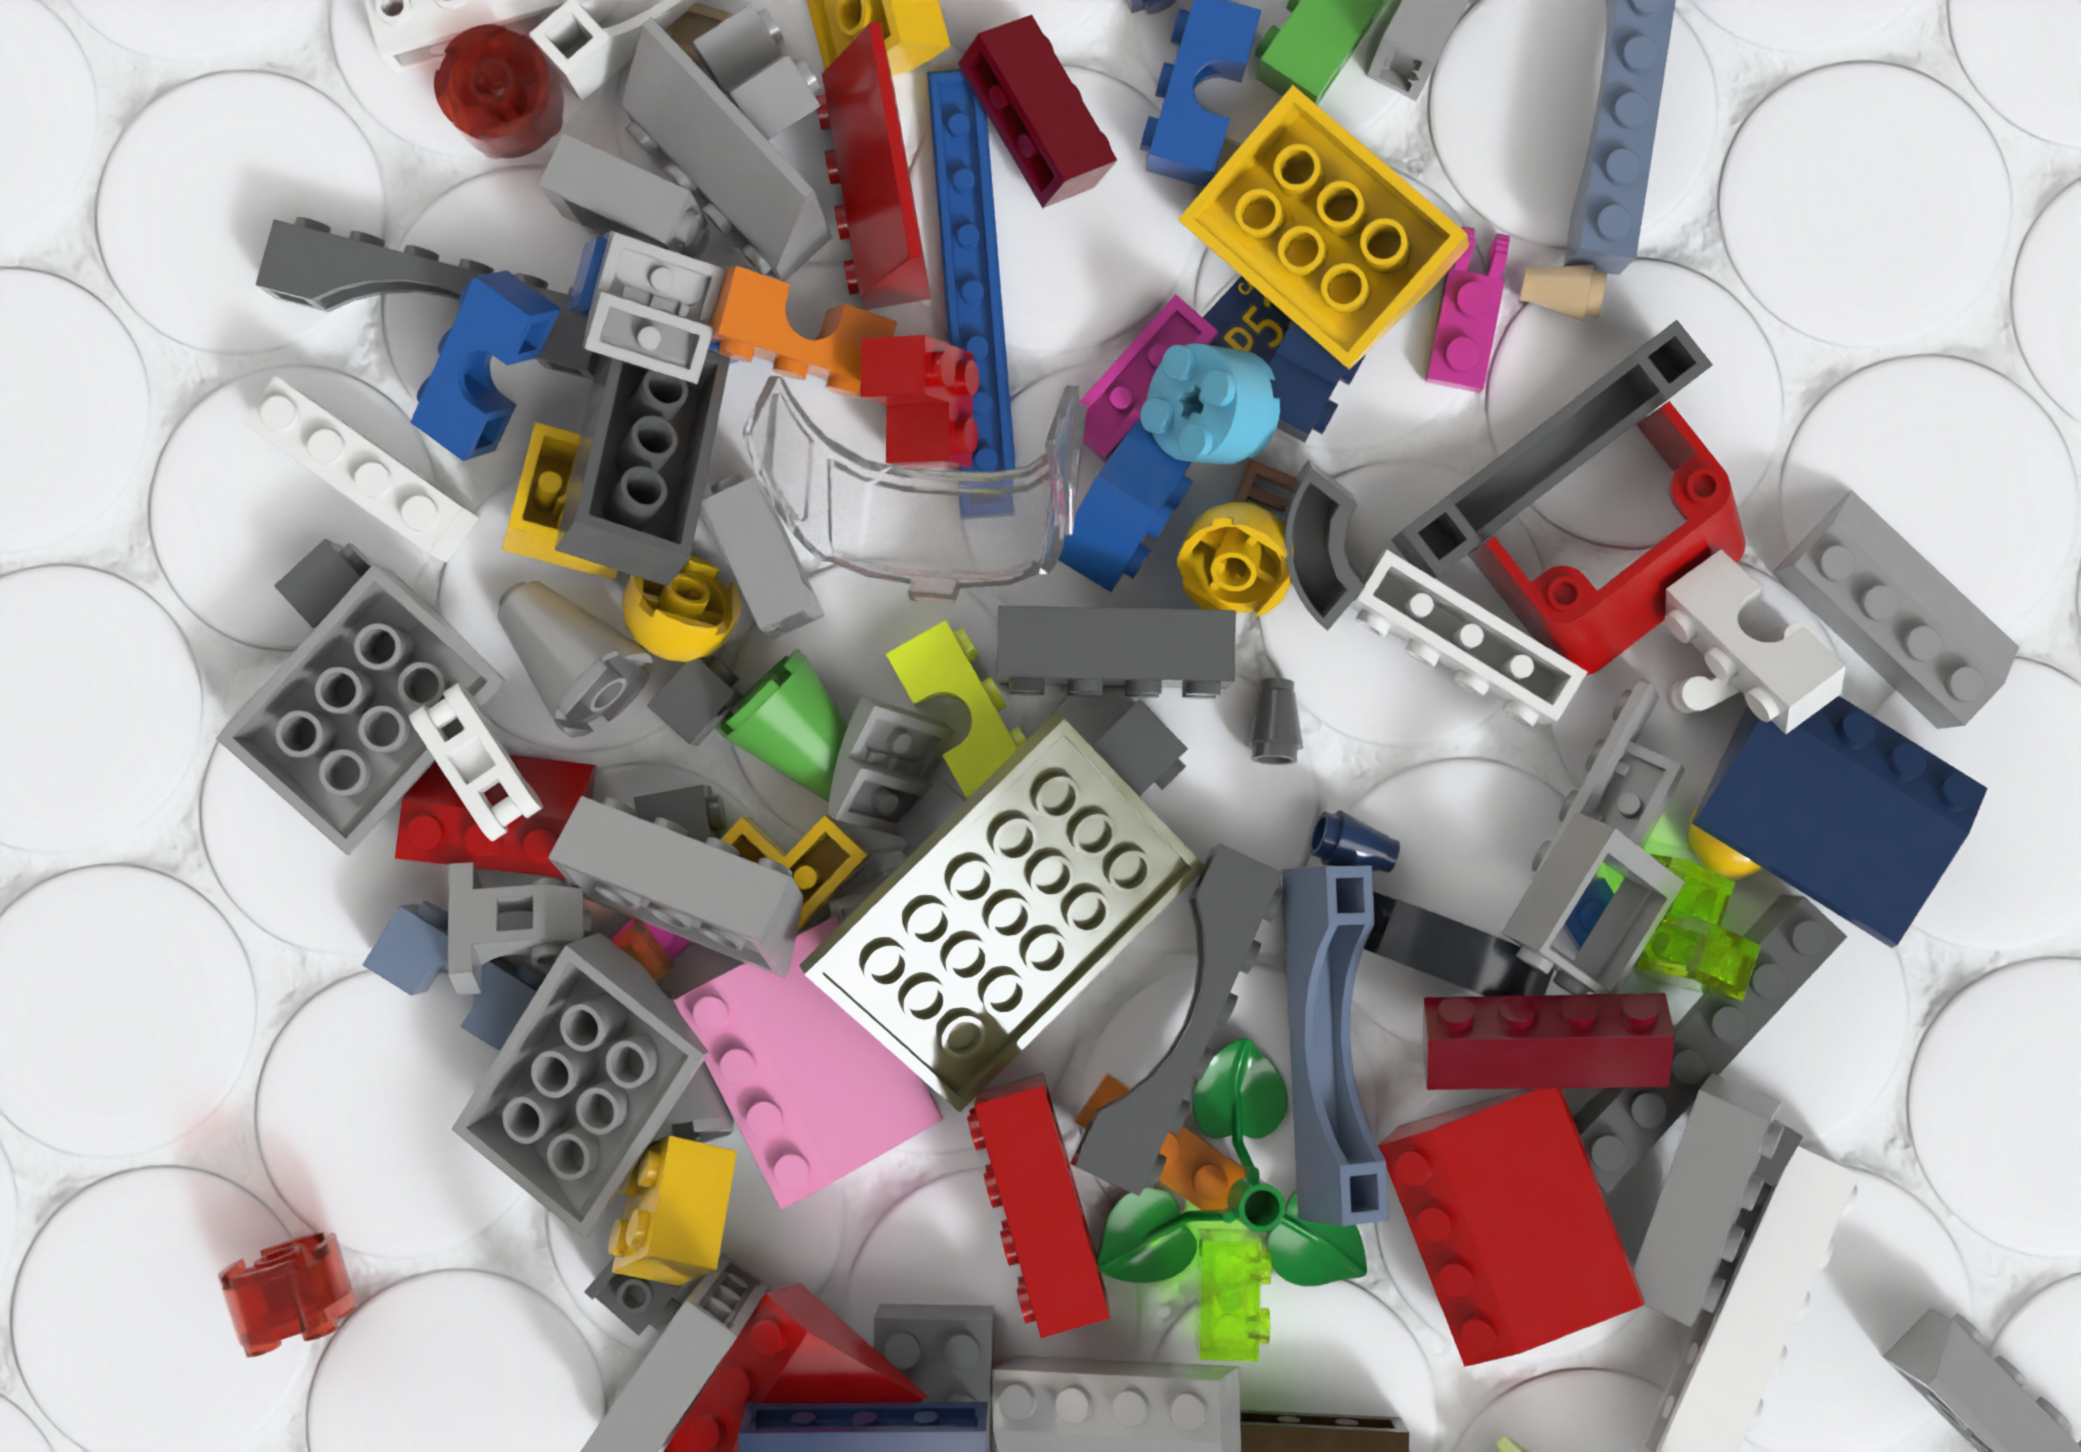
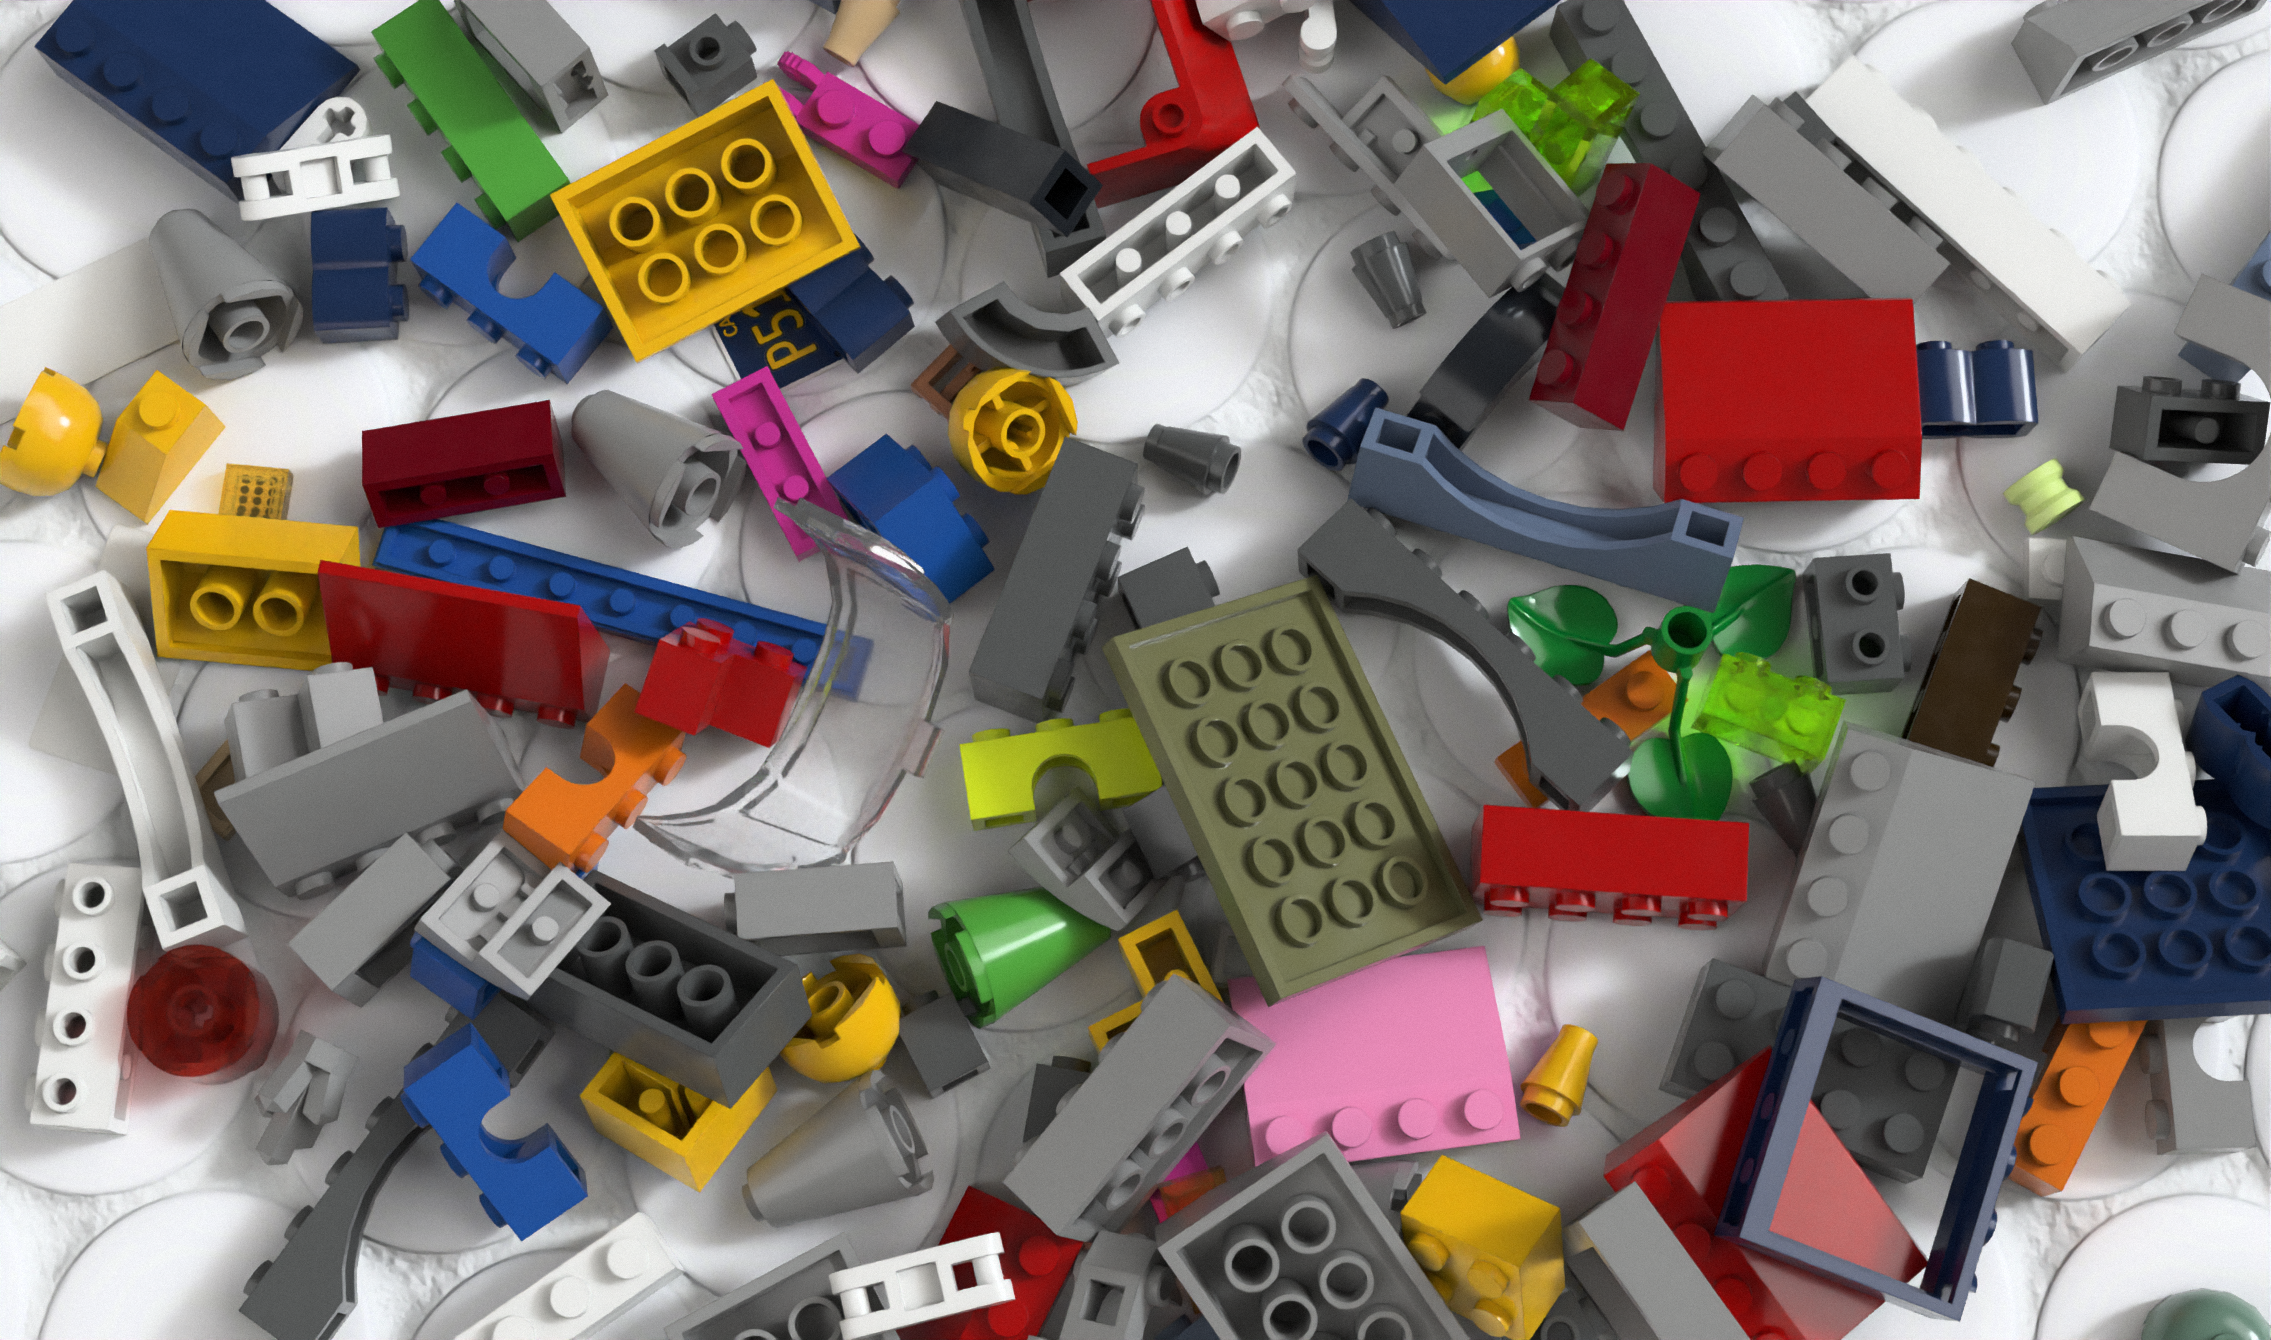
camera: 75 degrees left, 10 degrees down
(470, 199) = (302, 1096): none -> light grey rock
(853, 1221) = (1559, 1079): none -> yellow cone
(1097, 274) = (660, 464): none -> light grey cone
(1159, 1333) = (1786, 801): none -> dark grey cone
(1211, 404) = (842, 394): medium azure brick -> none
(1336, 1344) = (1856, 623): none -> dark grey brick
(1458, 186) = (709, 82): none -> dark grey brick
(1462, 465) = (1003, 168): none -> black brick
(1498, 835) = (1389, 278): none -> dark grey cone
(1587, 1383) = (1976, 391): none -> dark blue brick

